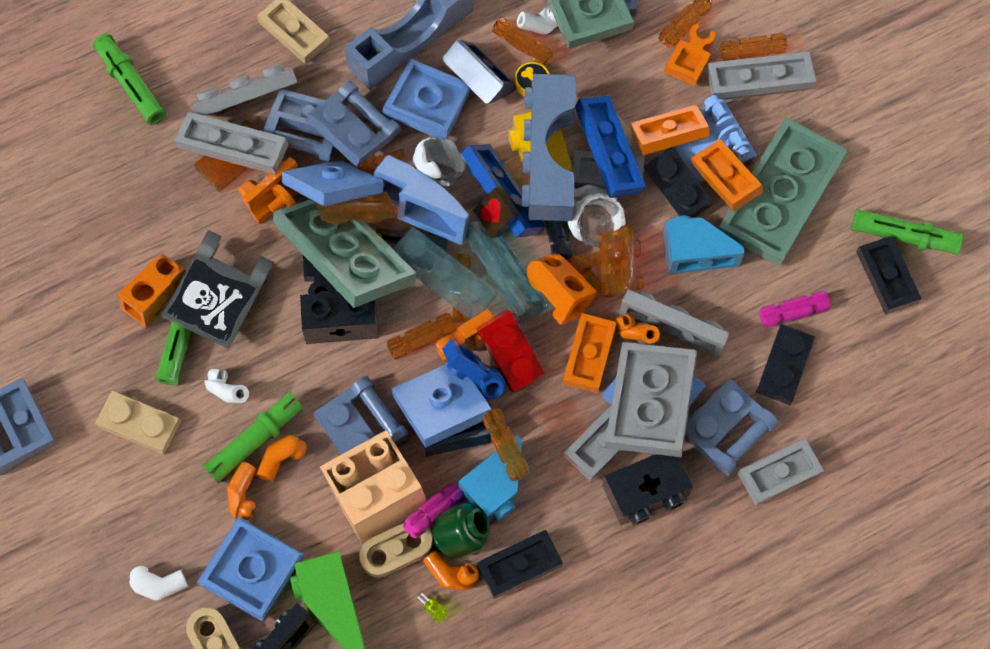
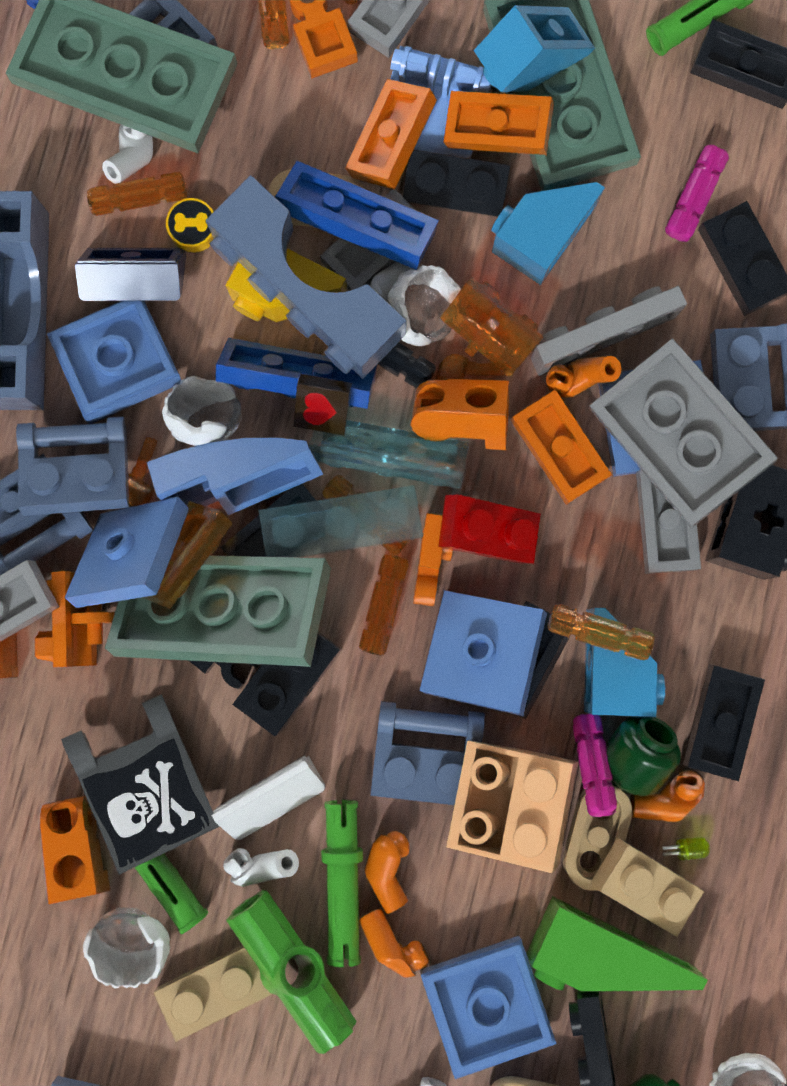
camera: 45 degrees left, 15 degrees up
(125, 355) = (126, 948): none -> clear hair
(176, 470) = (311, 996): none -> bright green piece
(266, 363) = (269, 799): none -> white slope
(391, 597) = (647, 887): none -> tan plate
(467, 364) = (471, 591): blue plate -> none
(781, 156) = (532, 47): none -> dark azure slope

